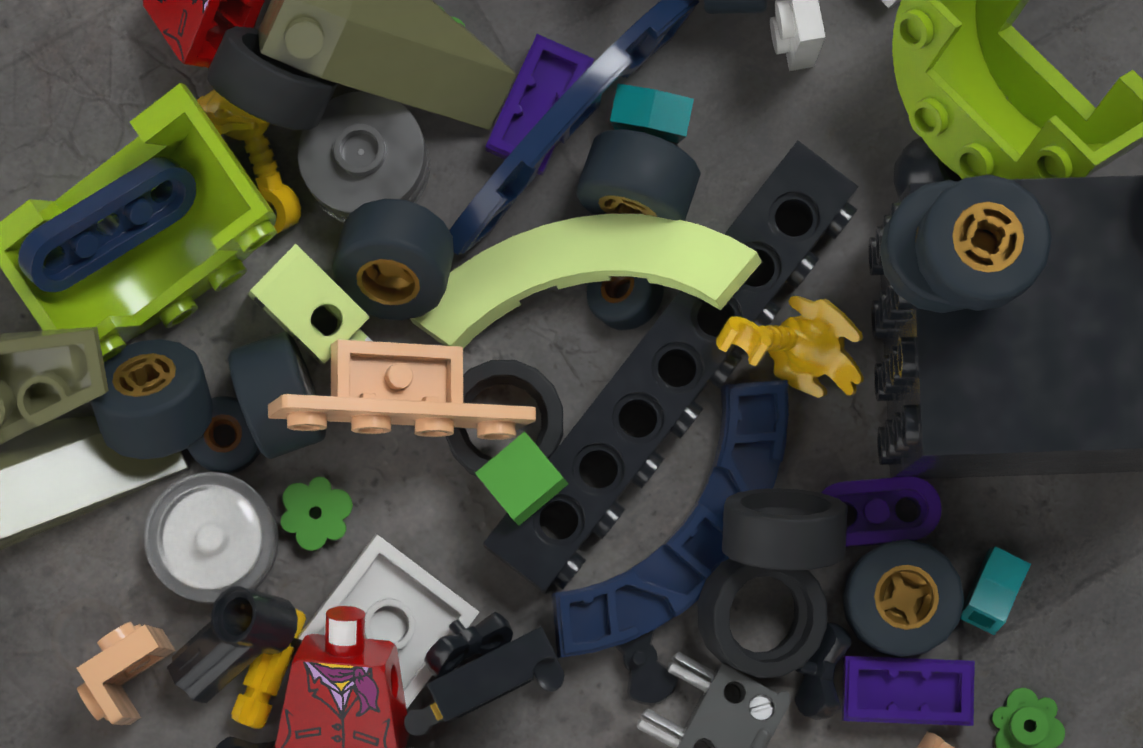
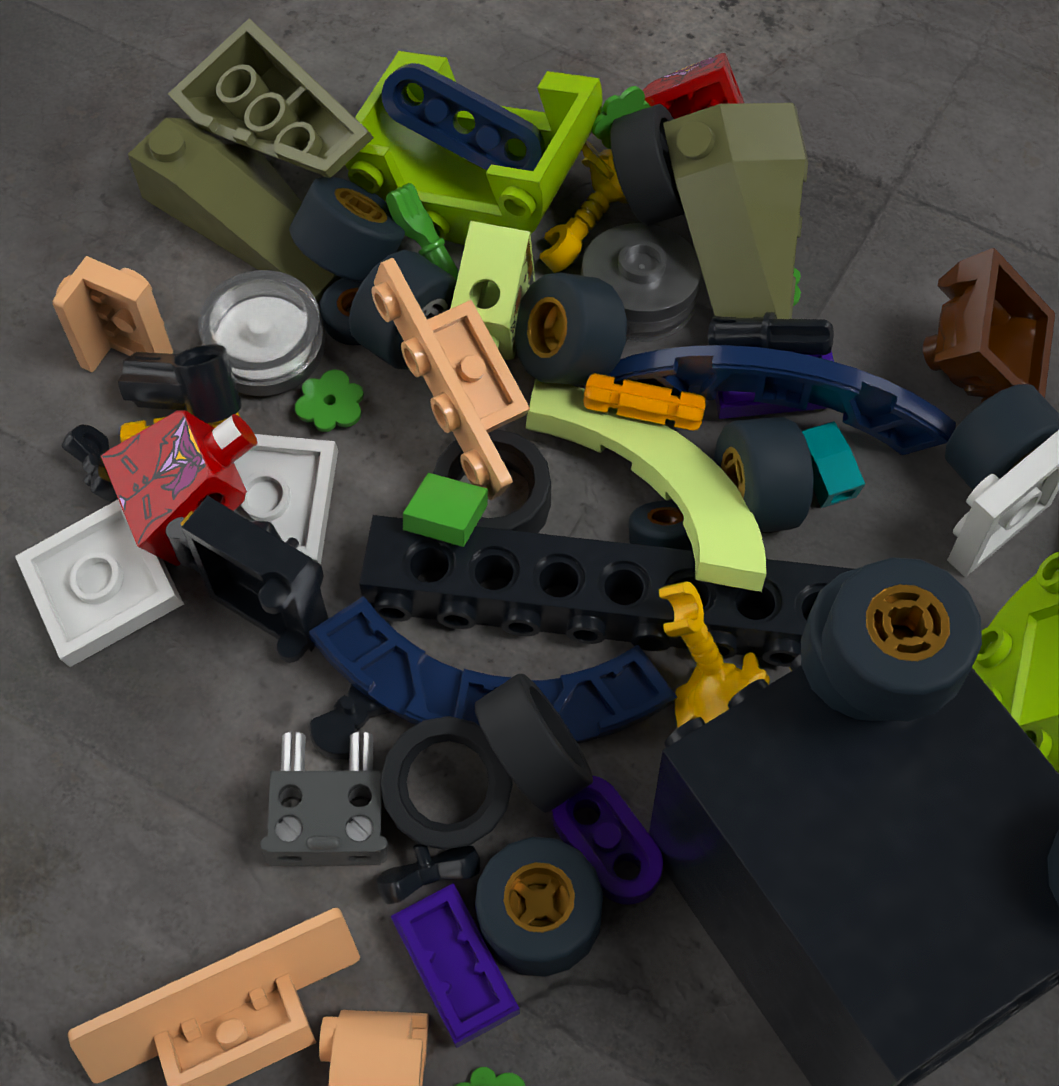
camera: 65 degrees right, 20 degrees down
(183, 330) = (413, 218): none -> bright green piece
(196, 75) = (617, 106): none -> bright green plant
(502, 237) = (644, 402): none -> light orange axle
(509, 87) = (768, 332): none -> black axle
(994, 590) = (600, 992): teal piece -> none

